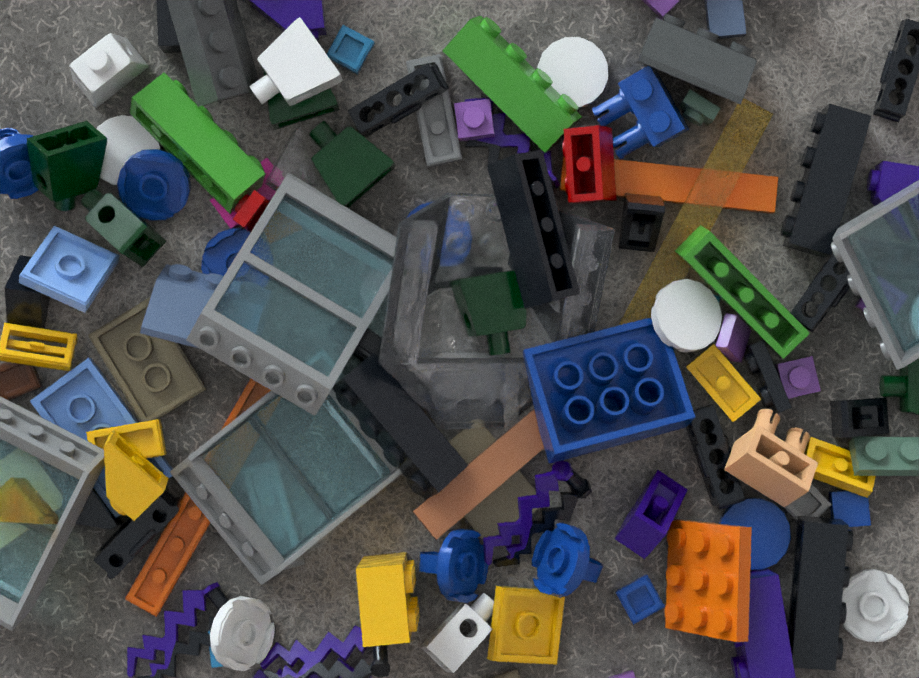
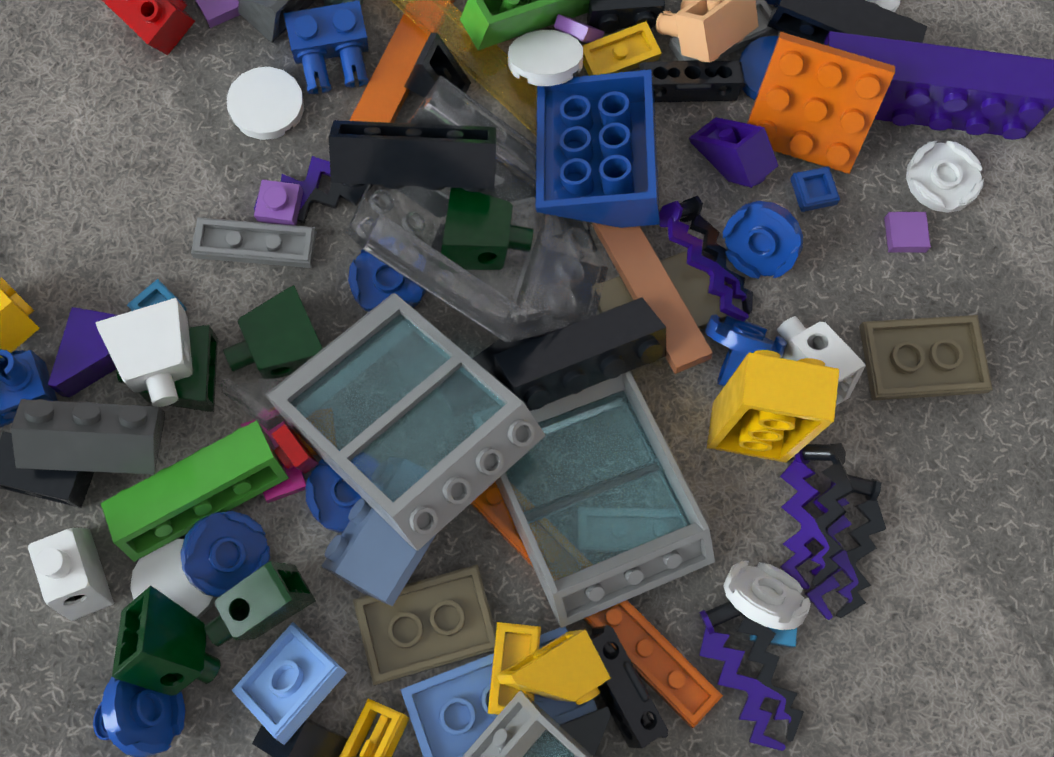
camera: 80 degrees left, 15 degrees down
(408, 104) = (217, 260): black piece -> none
(512, 82) = (252, 152): bright green brick -> none
(525, 626) = (821, 294): yellow tile -> none
(589, 164) = (363, 96): red brick -> none

